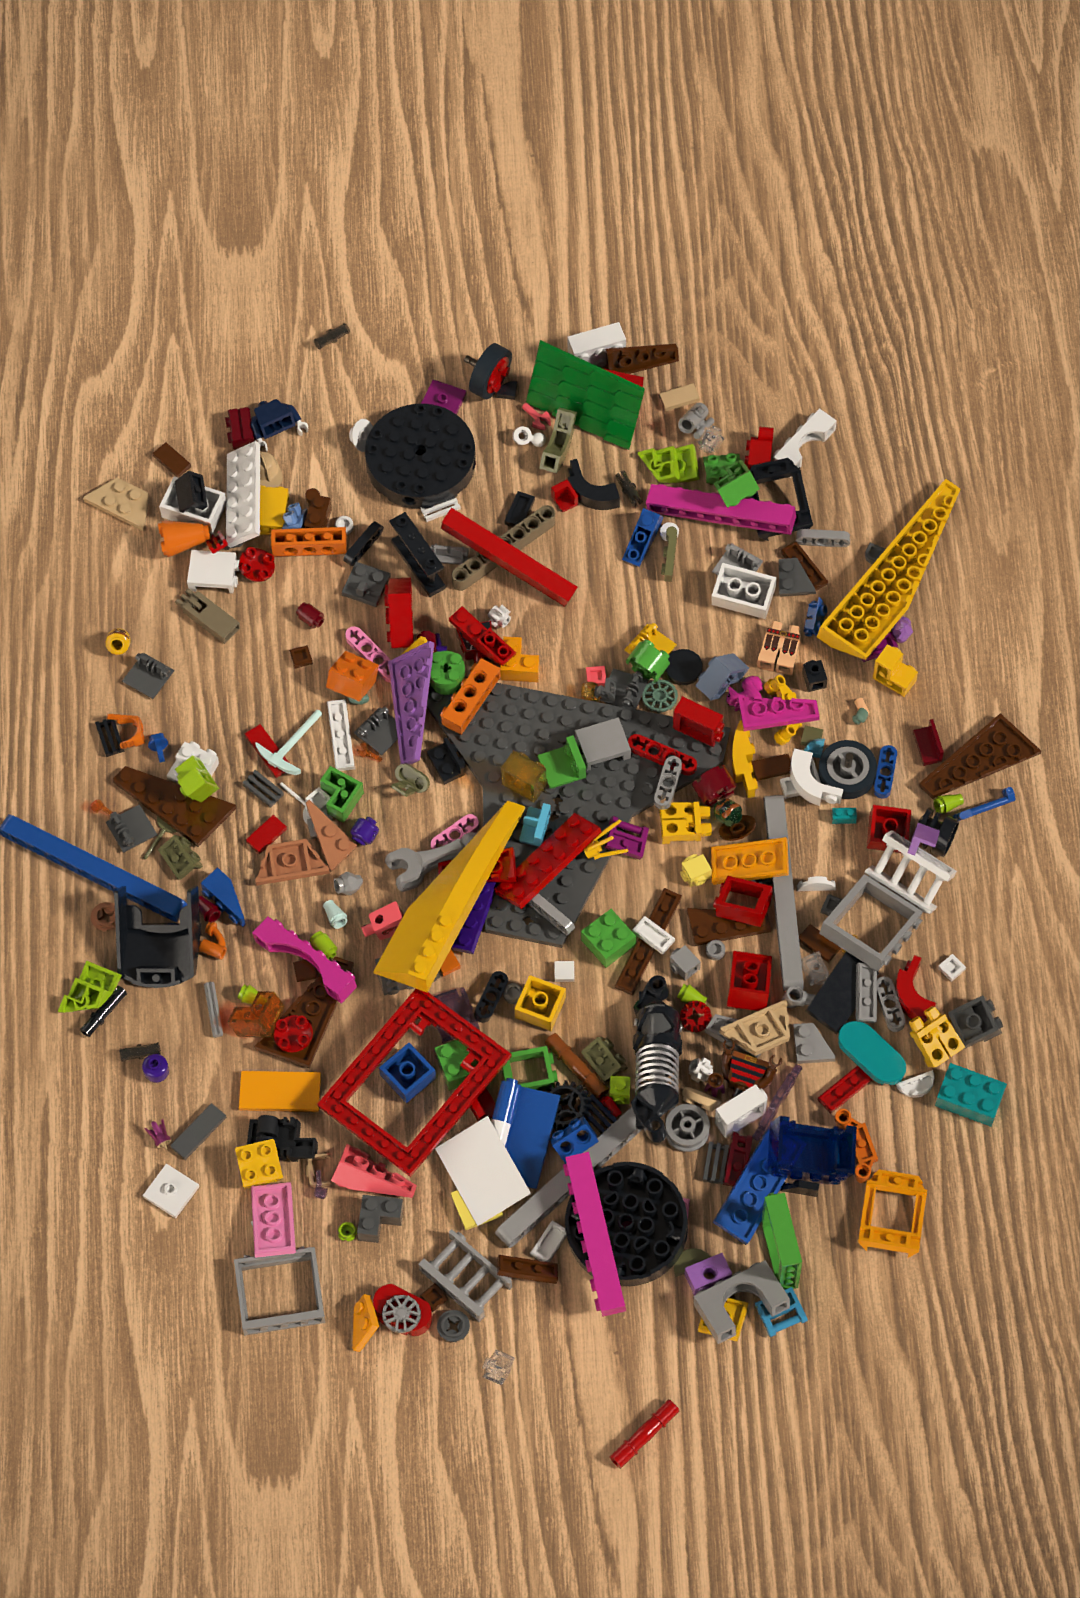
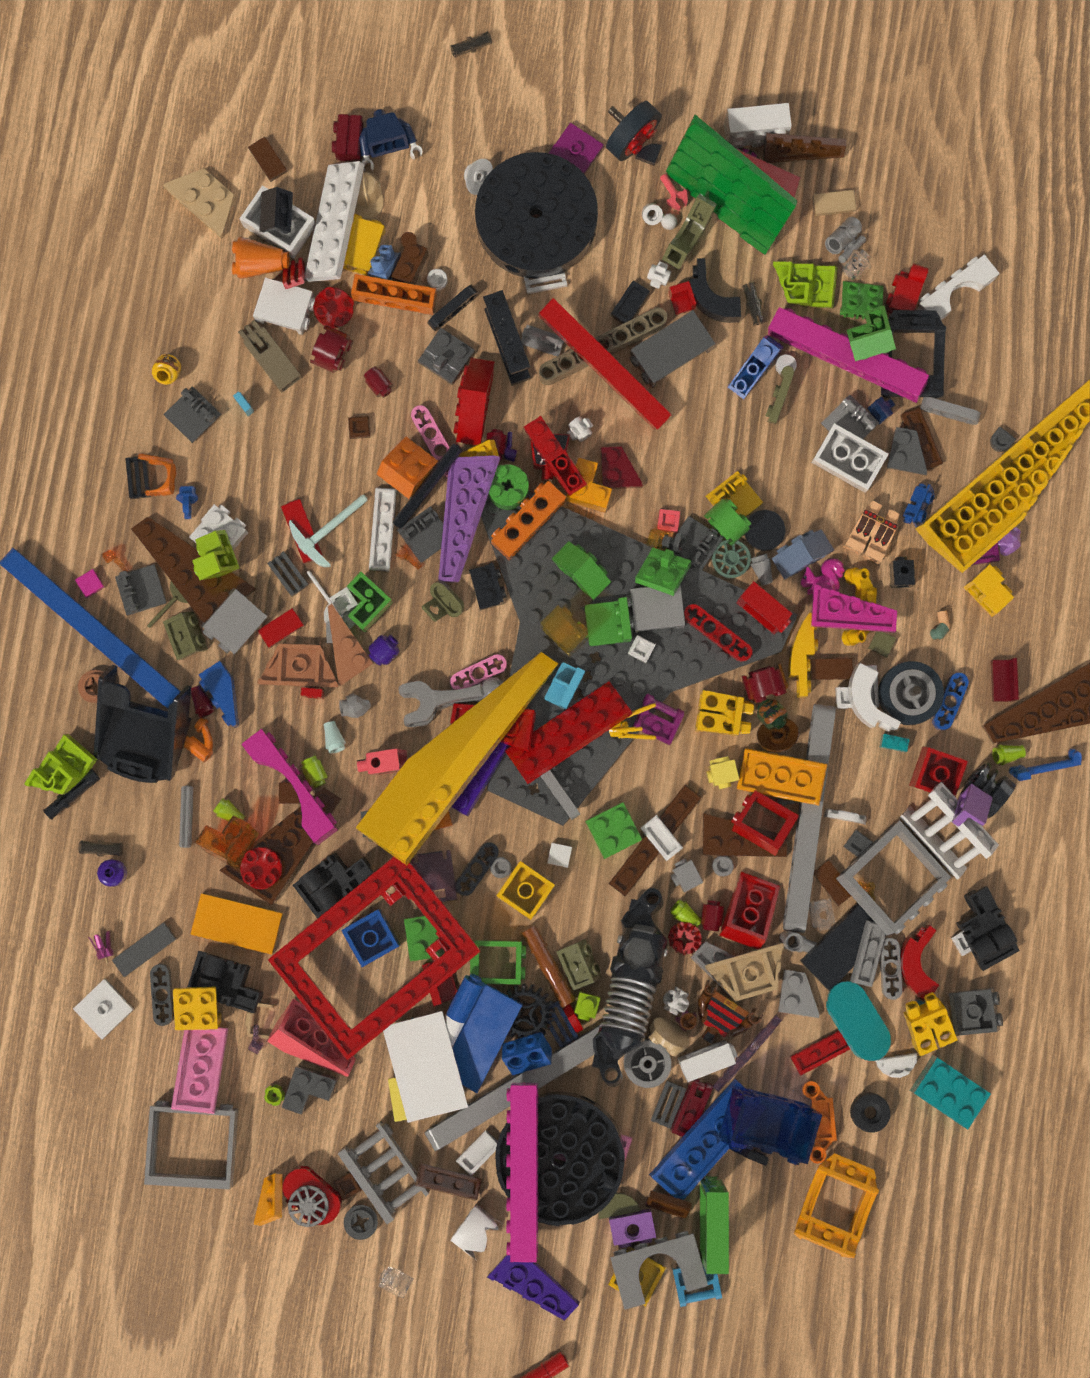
camera: 10 degrees right, 20 degrees up
(83, 832) = (89, 583): none -> dark pink tile
(193, 656) = (243, 403): none -> medium azure tile
(223, 833) = (233, 622): none -> light grey panel
(232, 1178) = (156, 979): none -> dark grey beam
(263, 594) = (331, 349): none -> dark red brick
(307, 880) = (312, 693): none -> red tile
(356, 1032) = (331, 882): none -> black plate
(373, 687) = (428, 484): none -> black axle
(529, 723) = (582, 569): none -> bright green brick
(539, 481) = (659, 275): none -> white gear
(541, 643) = (617, 469): none -> dark red wing
(561, 1308) = (472, 1234): none -> white piece
(564, 536) = (671, 348): none -> dark grey panel
(597, 781) = (641, 649): none -> white tile
(600, 710) = (663, 571): none -> bright green hinge
(624, 1343) = (534, 1285): none -> dark purple wing
(667, 775) = (718, 654): light grey beam -> none
(688, 692) = (762, 568): none -> light grey cone
(716, 992) = (712, 915): none -> dark red brick
(737, 1246) = (668, 1204): none -> reddish brown tile
(762, 548) = (881, 410): none -> dark blue tile
(816, 747) = (881, 658): medium azure tile -> none
(907, 1118) = (858, 1108): none -> black tyre
(967, 951) = (986, 930): none -> black plate

